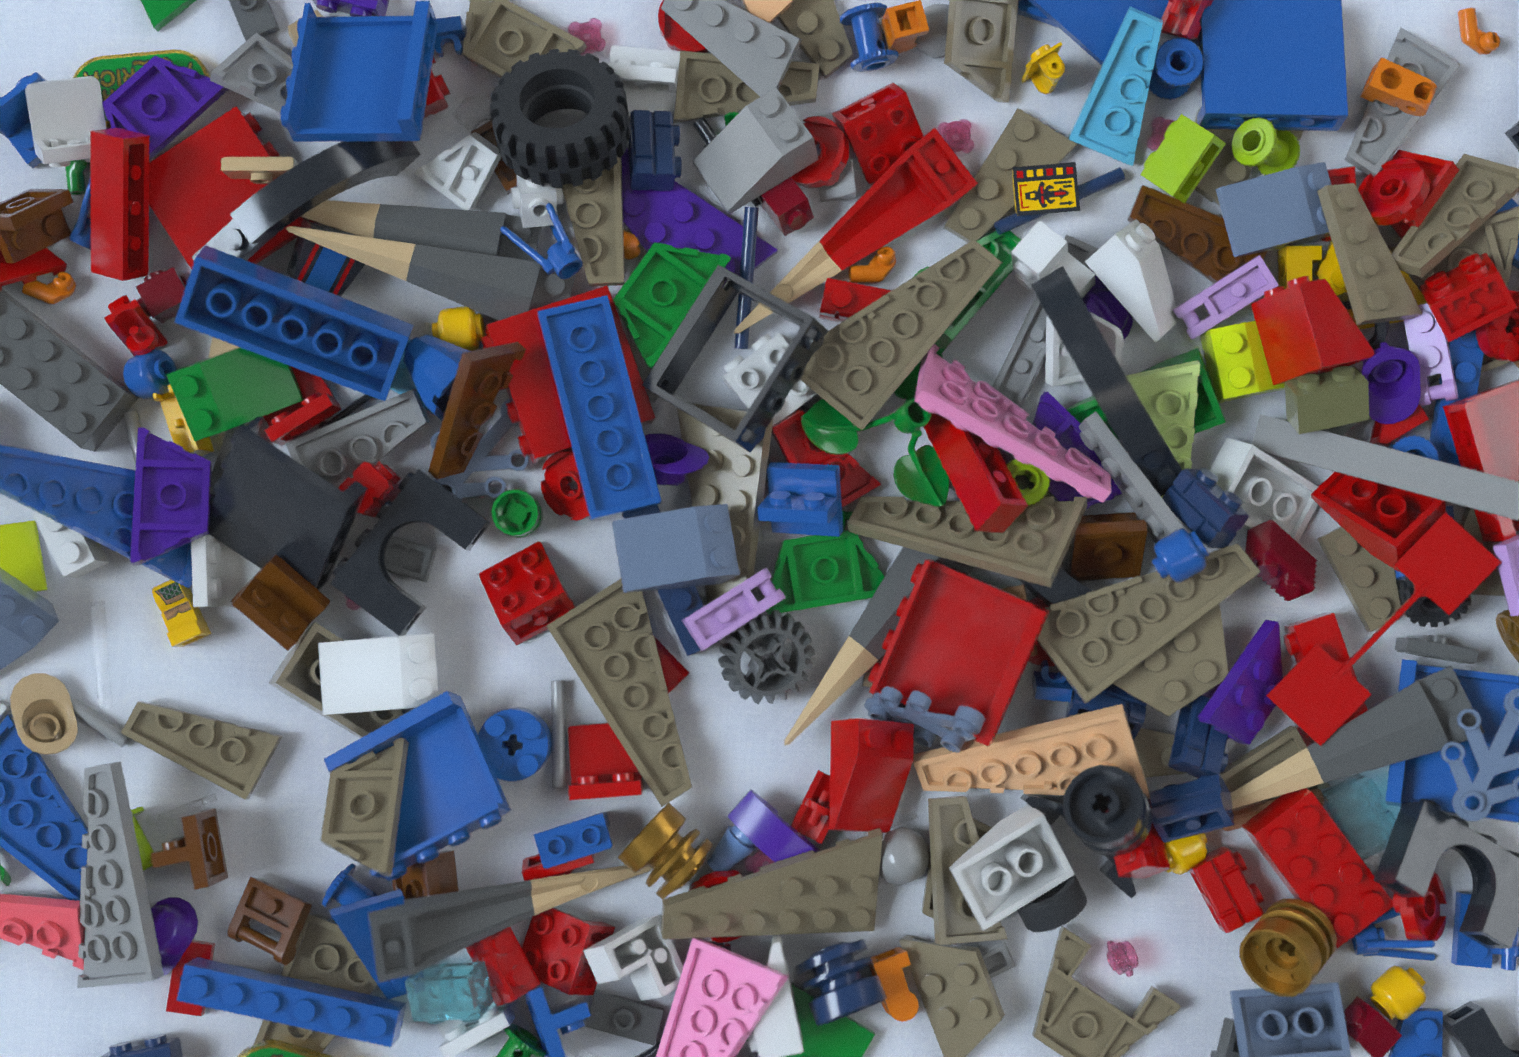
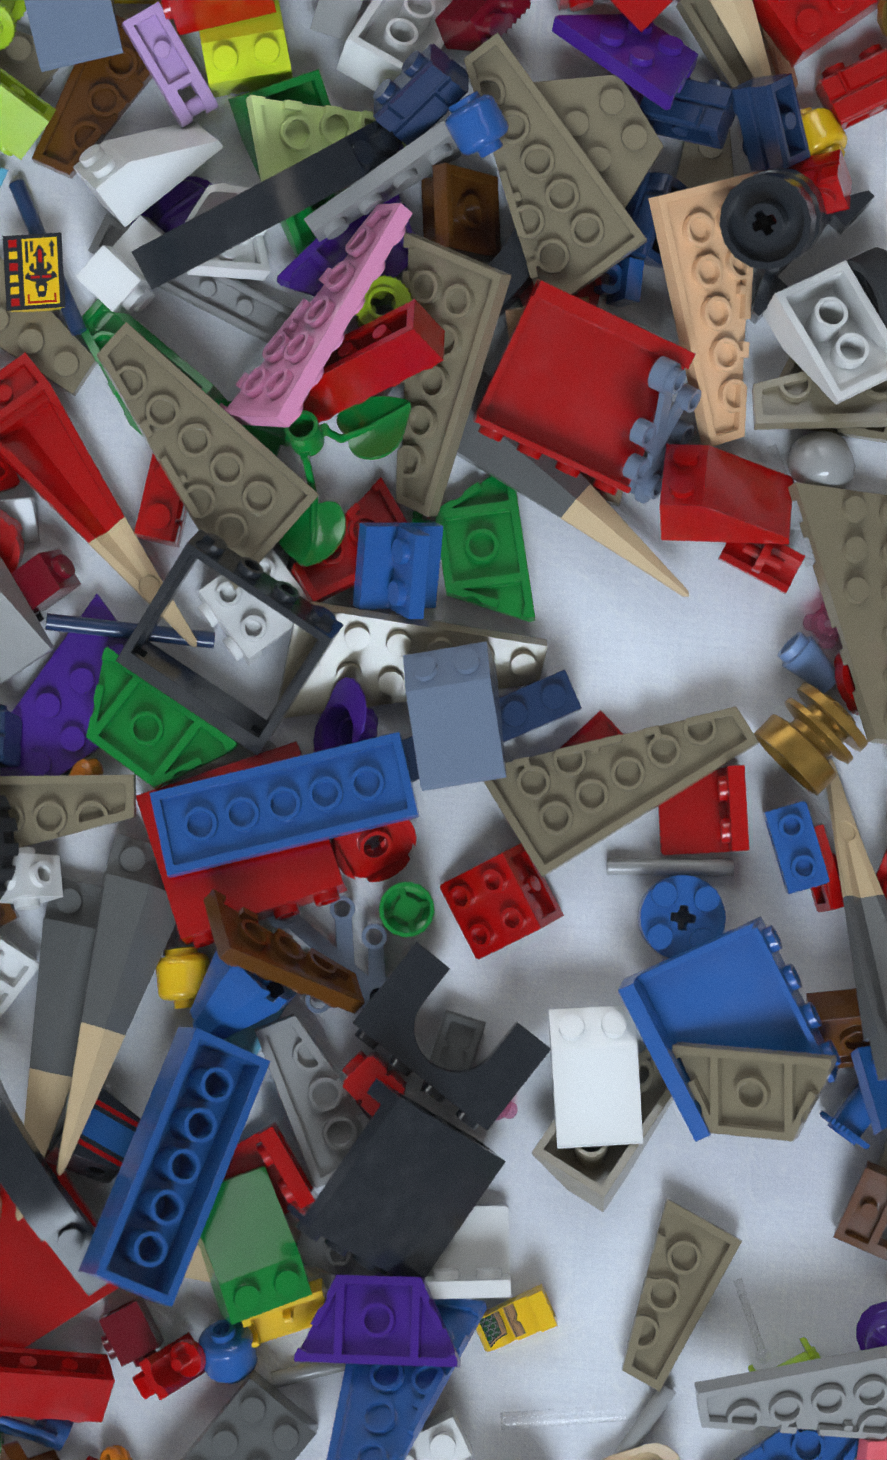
camera: 80 degrees left, 0 degrees up
(199, 846) = (797, 1296): reddish brown bracket -> none
(280, 602) = (507, 1193): reddish brown bracket -> none
(347, 411) = (279, 1118): black hinge -> none
(561, 255) = (99, 848): blue plant -> none
(732, 610) = (528, 651): lavender plate -> none
(767, 830) = (787, 618): dark purple slope -> none
(788, 672) = (560, 617): dark grey gear -> none
(877, 268) = (123, 476): orange arm -> none

